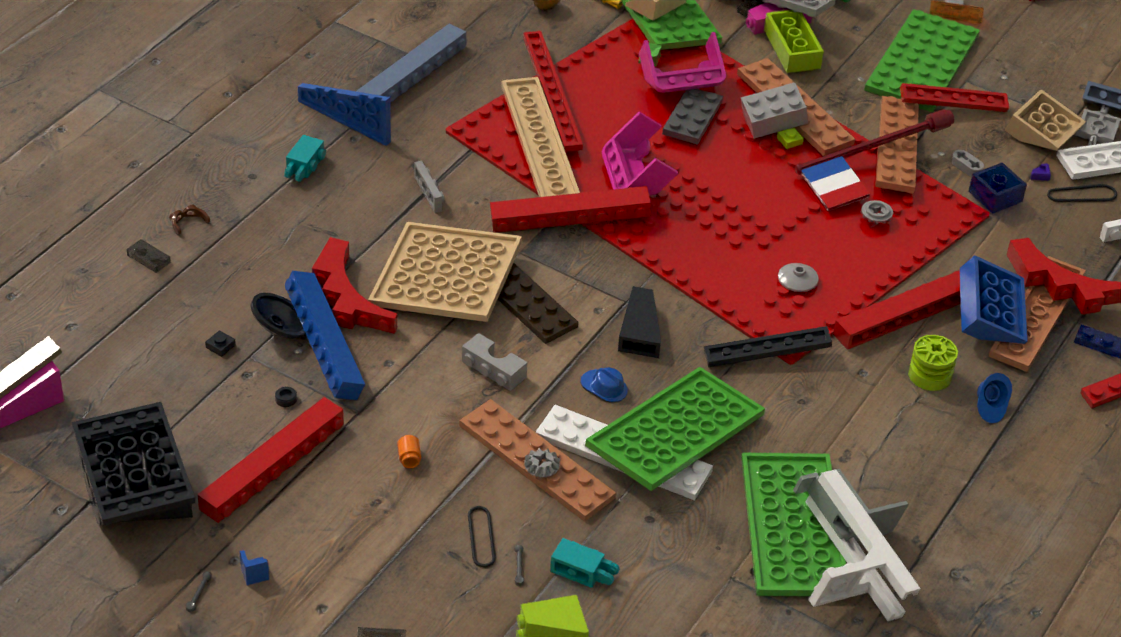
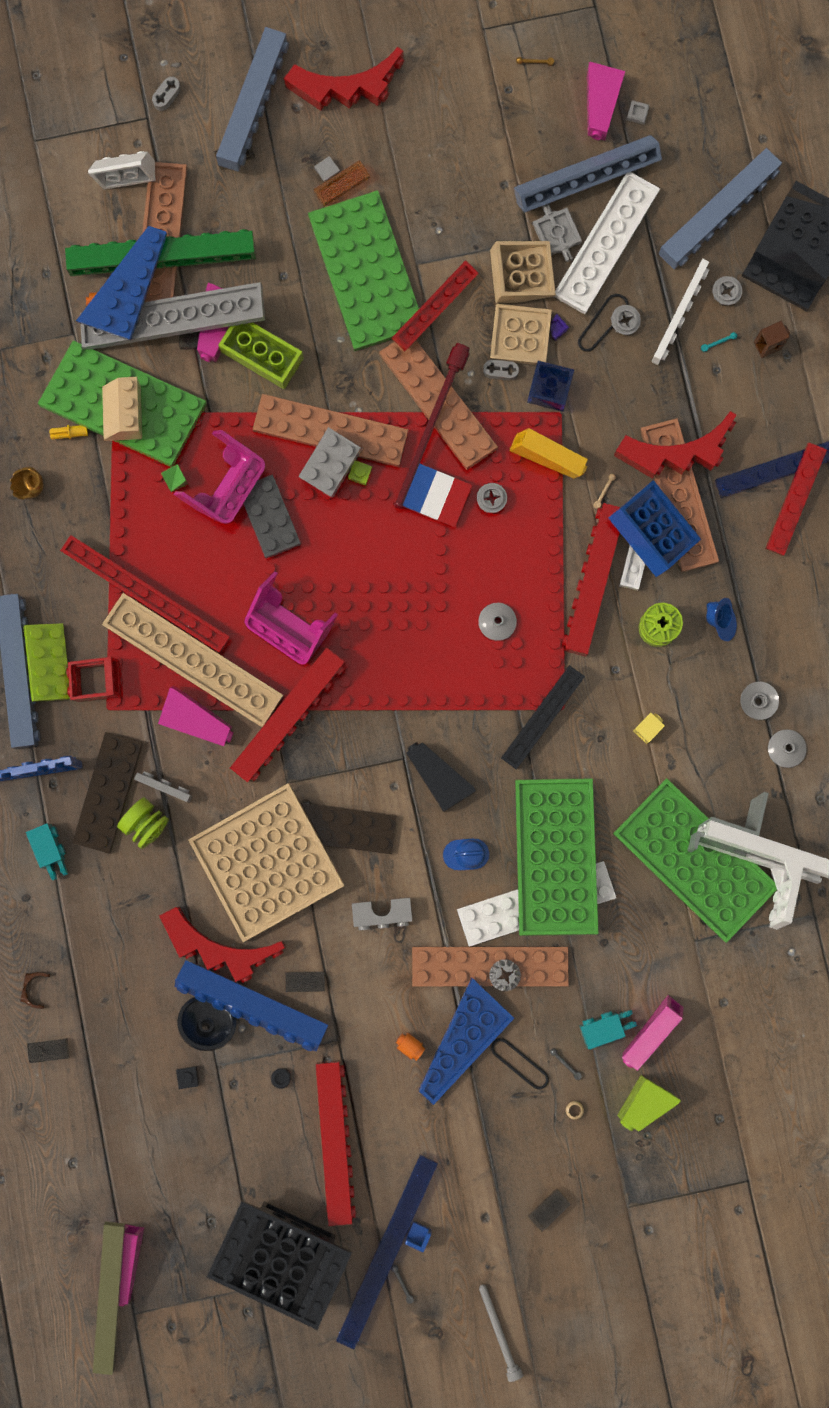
camera: 40 degrees left, 40 degrees up
(214, 557) = (386, 1252): none -> clear blue plate
(382, 359) = (305, 981): none -> clear smoke plate
(383, 166) = (107, 793): none -> dark brown plate
(388, 185) = (141, 821): none -> lime wheel
(438, 77) = (47, 662): none -> lime plate
(462, 479) = (471, 1030): none -> blue wing
(472, 103) = (112, 679): none -> red window
(488, 604) = (577, 1116): none -> tan piece
(498, 165) = (192, 718): none -> dark pink slope
(622, 593) = (653, 1033): none -> dark pink slope
(850, 416) = (649, 727): none -> light yellow brick
(945, 325) = (632, 570): none -> white plate
(951, 212) = (548, 453): none -> yellow slope
(961, 520) = (778, 752): none -> light grey dish
(969, 467) = (768, 697): none -> light grey dish
(1009, 149) = (520, 334): none -> tan plate
(1110, 202) = (628, 312): none -> light grey gear

